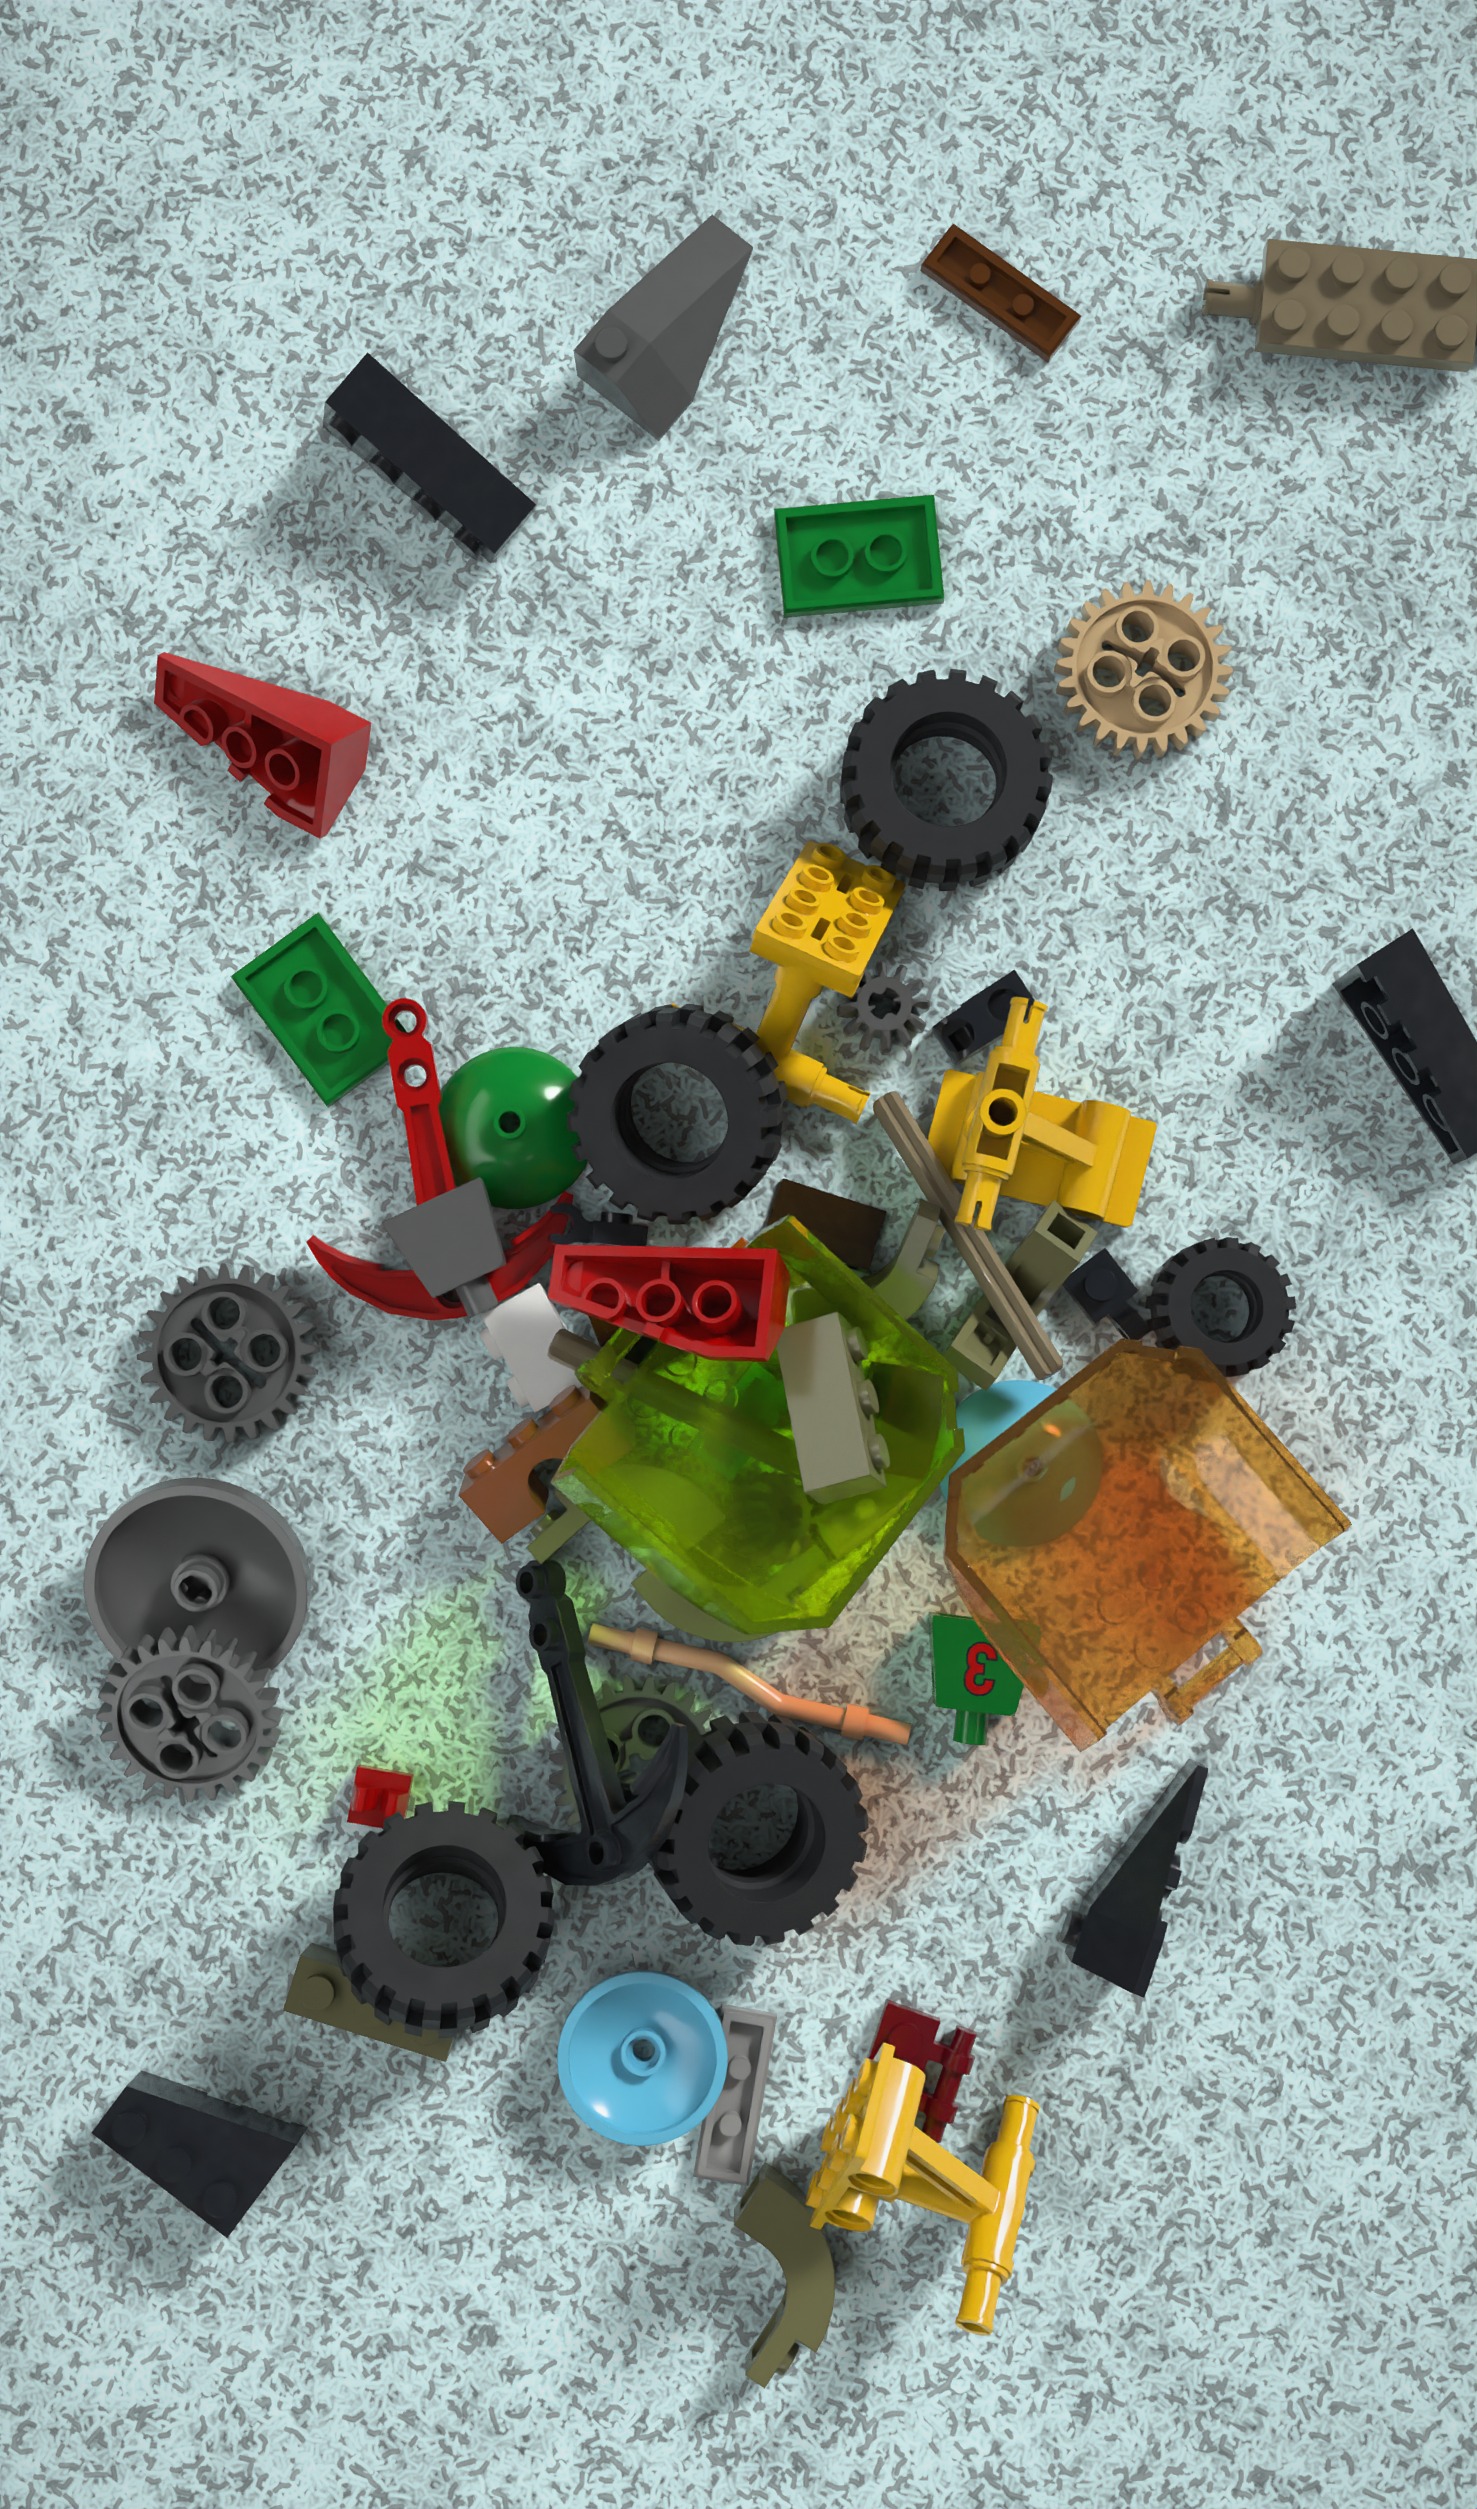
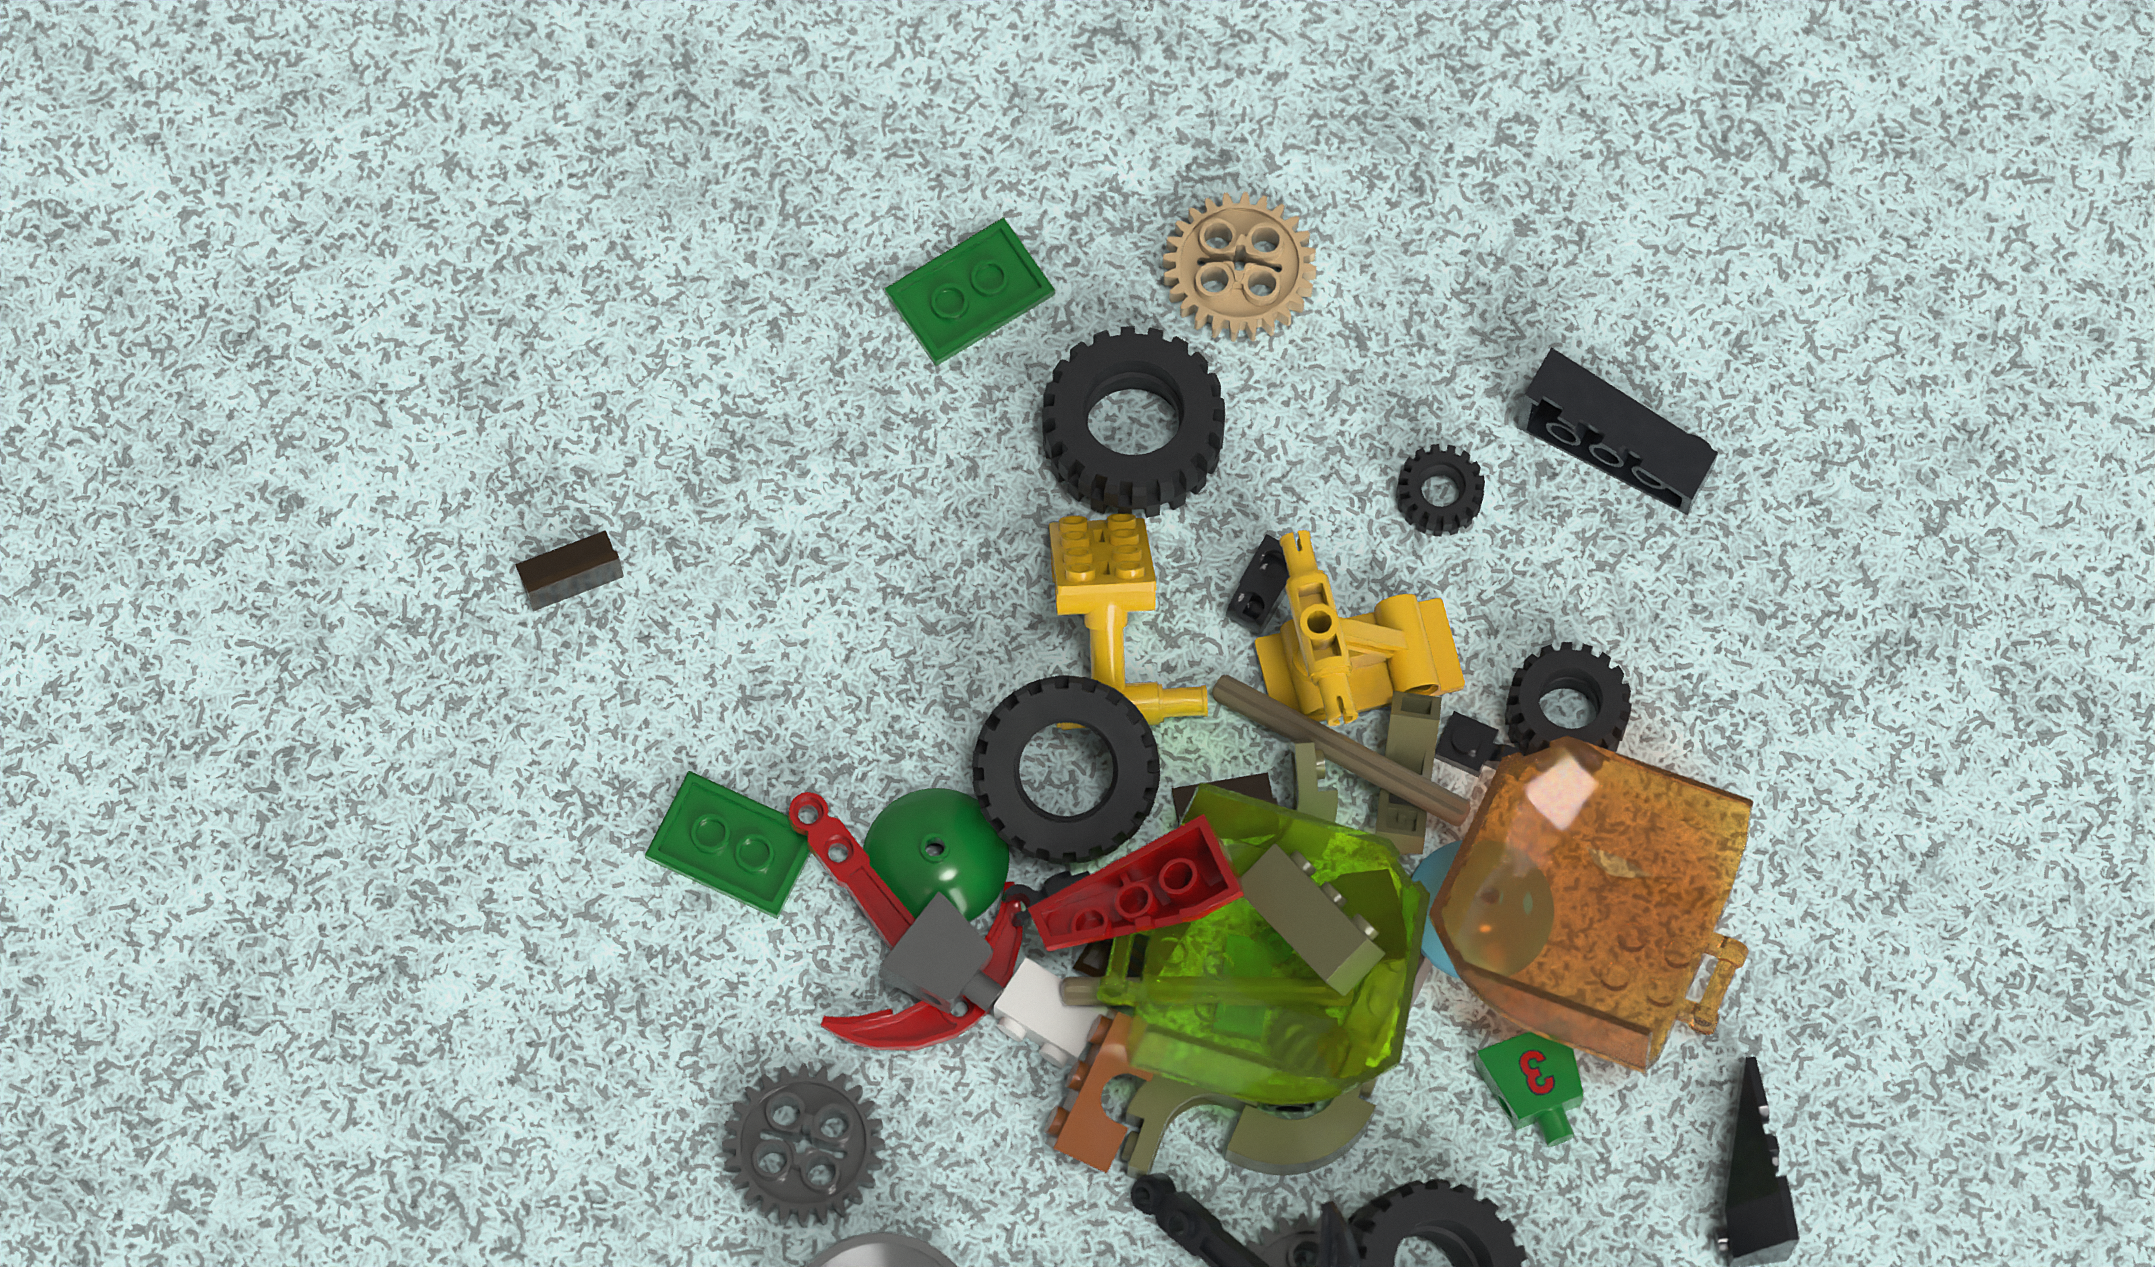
camera: 30 degrees left, 15 degrees down
(286, 740) = (590, 652): red wedge -> none
(308, 644) = (569, 570): none -> dark brown panel
(425, 459) = (592, 383): black wedge -> none
(661, 333) = (724, 202): dark grey wedge -> none
(852, 1721) = (1264, 1202): light nougat bar -> none
(892, 1024) = (1198, 622): dark grey gear -> none
(1000, 293) = (971, 44): reddish brown tile -> none
(1241, 988) = (1446, 464): none -> black tyre

